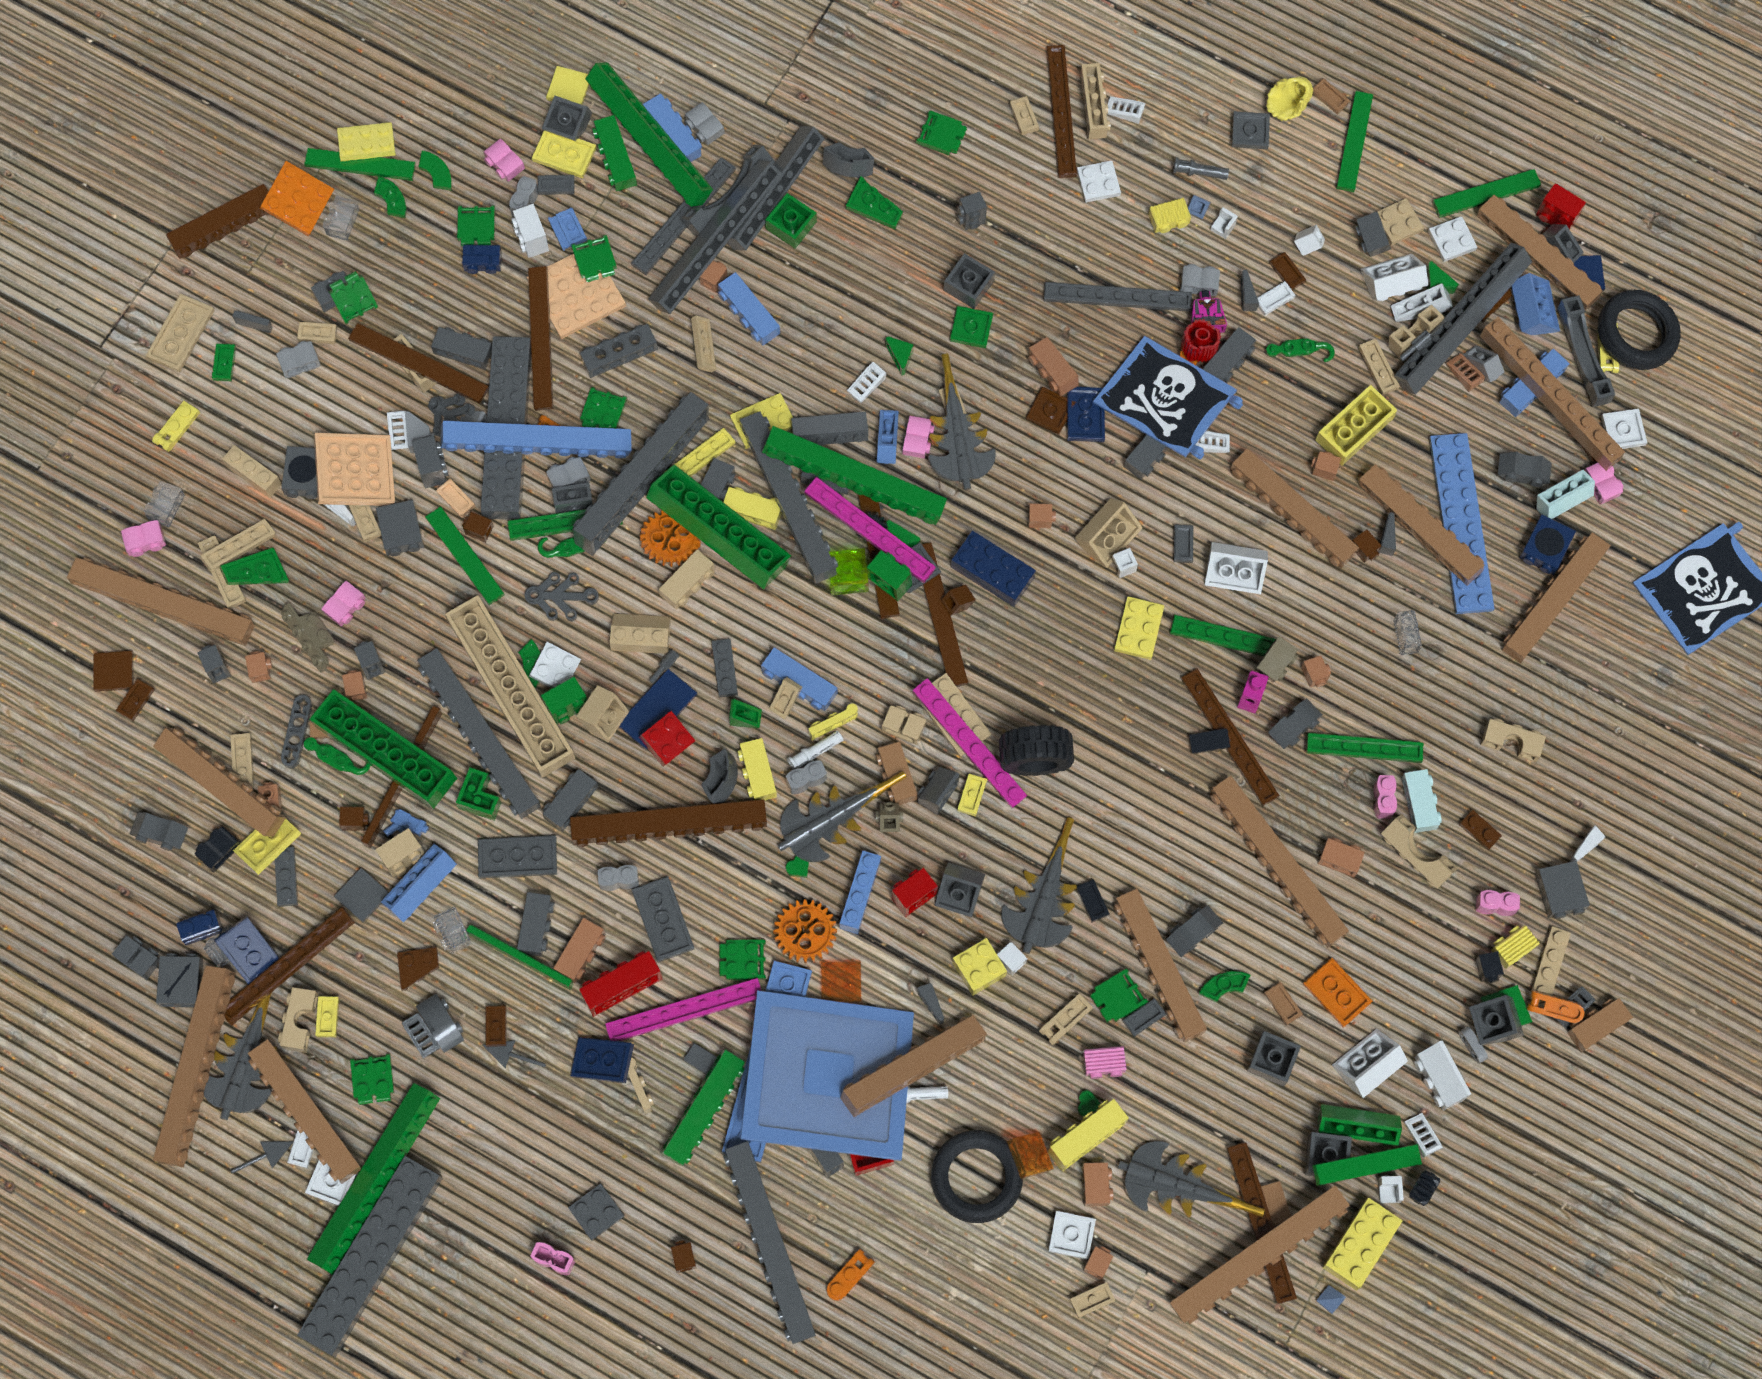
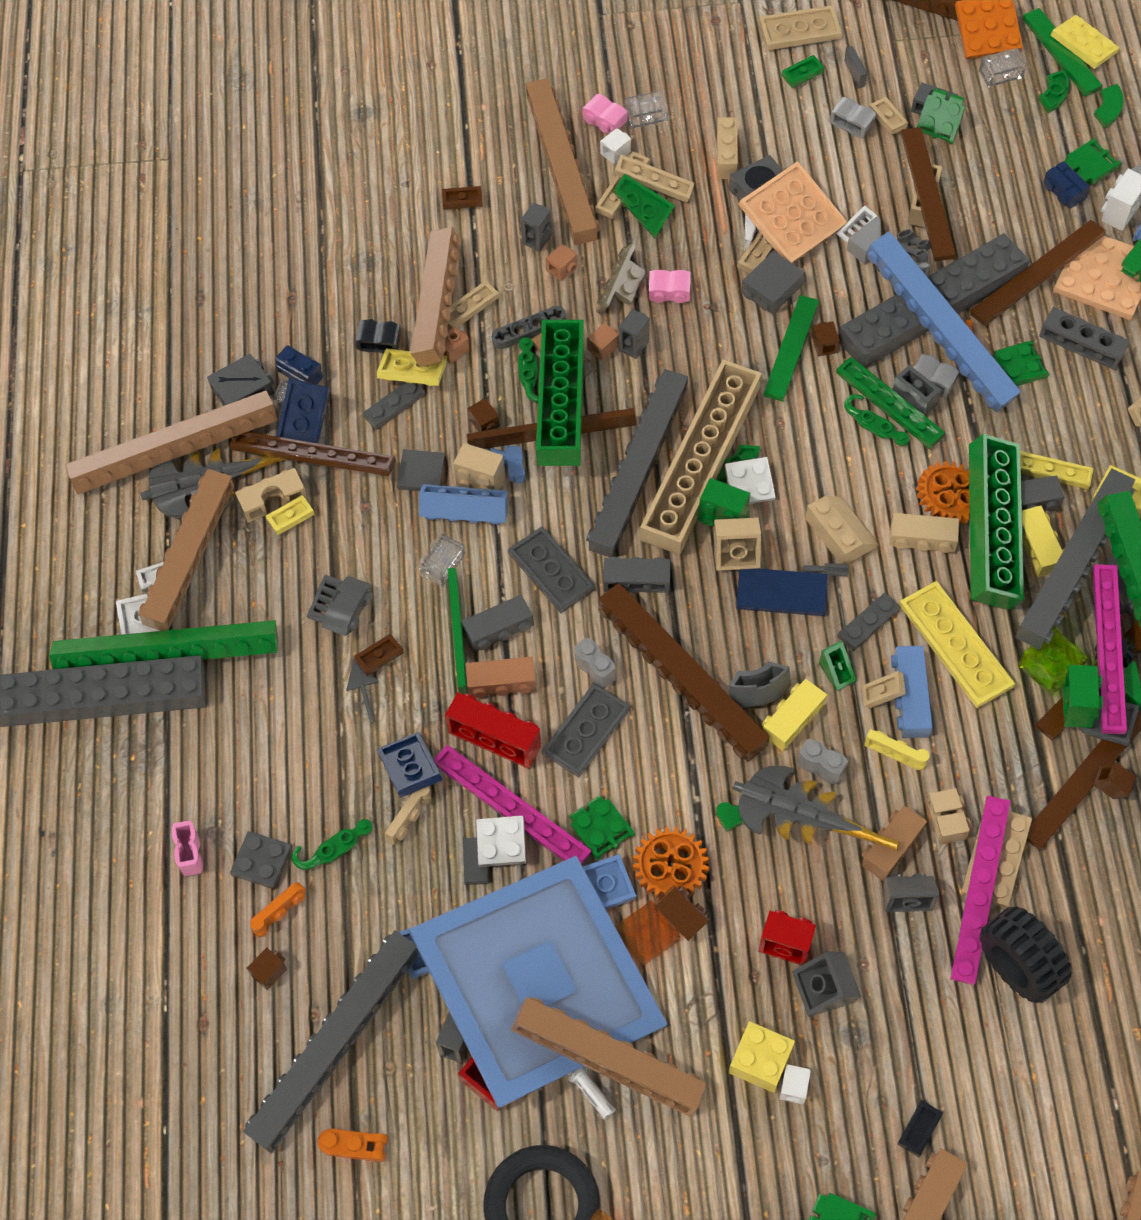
camera: 60 degrees right, 10 degrees down
(112, 671) = (475, 168): reddish brown tile -> none
(136, 957) = (240, 339): dark grey piece -> none
(158, 831) = (361, 285): dark grey brick -> none
(176, 426) = (719, 76): light yellow plate -> none
(181, 551) = (614, 145): none -> white brick
(273, 1152) = (139, 556): dark grey piece -> none
(372, 1079) = (258, 589): green plate -> none
(416, 965) = (389, 554): reddish brown wing -> none
(430, 461) = (848, 262): dark grey brick -> none
(455, 498) = (837, 306): light nougat tile -> none
(462, 347) = (972, 220): dark grey brick -> none
(473, 796) = (578, 493): green brick -> none
(559, 595) = (819, 441): dark grey plant -> none
(624, 1154) = (334, 846): none -> green piece
(638, 475) = (962, 422): dark grey brick -> none
(645, 1223) = (277, 909): none -> orange plate
(667, 739) = (758, 614): red brick -> none
(702, 1108) = (425, 885): green brick -> none
(707, 1034) = (501, 841): none -> white plate
(785, 623) = (956, 644): none -> light yellow plate
(807, 755) = (856, 753): white pin -> none
(846, 949) = (681, 912): none -> reddish brown brick
(860, 892) = (748, 888): medium blue brick -> none
(889, 817) = (844, 864): dark tan brick -> none
(930, 999) = (692, 1030): dark grey slope -> none
(972, 795) = (931, 929): light yellow plate -> none
(1035, 924) = (849, 1085): dark grey animal -> none
(1066, 1018) = (775, 1186): tan plate -> none

